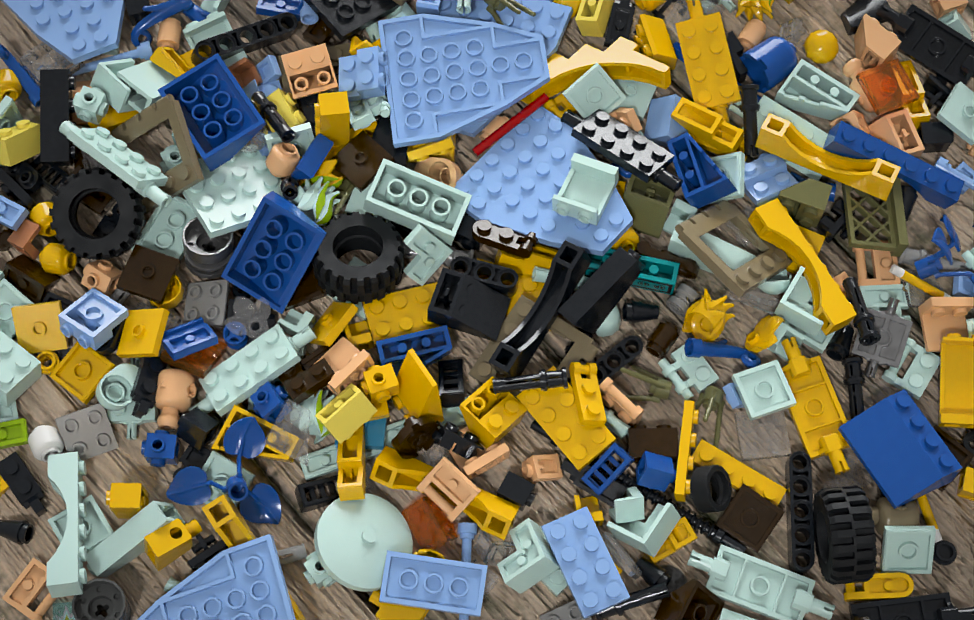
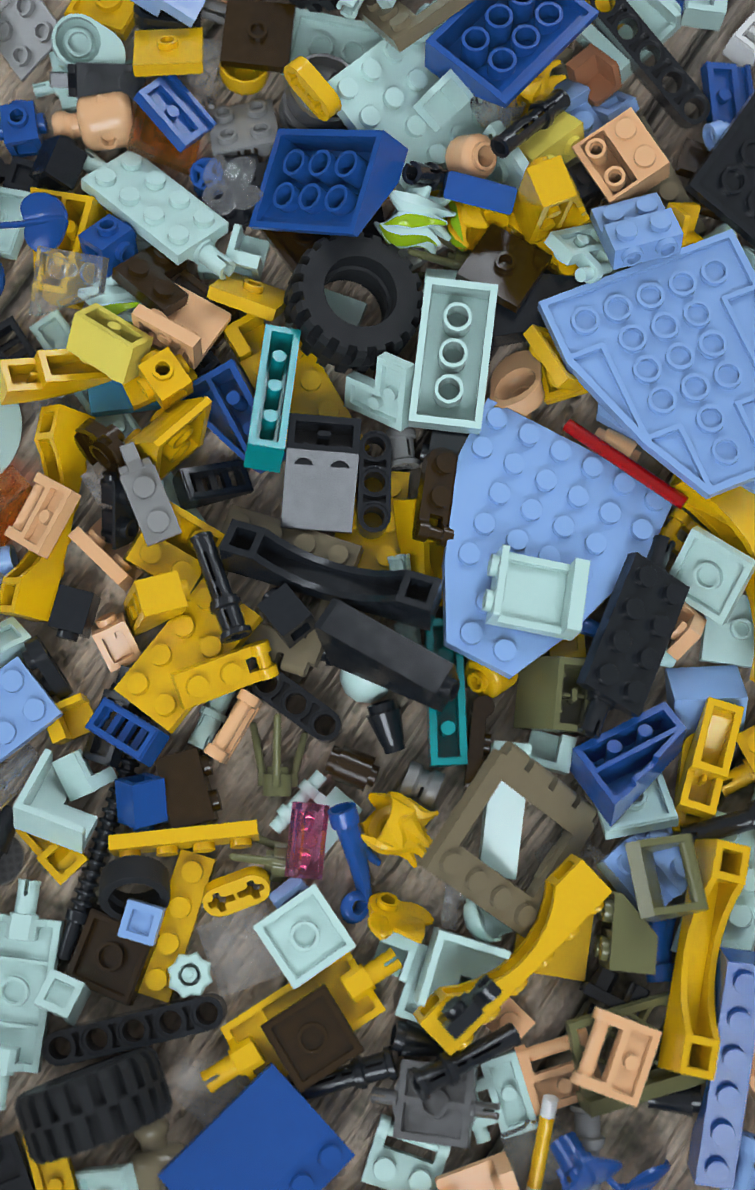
camera: 80 degrees right, 10 degrees up
(211, 239) = (312, 88): none -> yellow beam
(238, 165) = (443, 100): none -> light aqua panel
(415, 316) = (272, 399): none -> teal brick
(460, 410) = (147, 497): none -> light grey hinge
(529, 427) = (155, 601): none -> yellow slope
(550, 512) = (39, 657): none -> black plate
(557, 347) = (286, 614): none -> black brick
(710, 375) = (306, 841): none -> clear pink plate
(725, 427) = (236, 891): none -> yellow beam
(734, 486) = (141, 921): none -> light blue plate
(770, 548) = (63, 996): none -> light aqua panel
(773, 468) = (189, 975): none -> light aqua piece
(776, 176) = (646, 880): none -> olive tile
(828, 398) = (312, 1038): none -> dark brown plate
(832, 294) = (463, 1011): none -> black plate
(878, 214) = (628, 1060): none -> light nougat plate

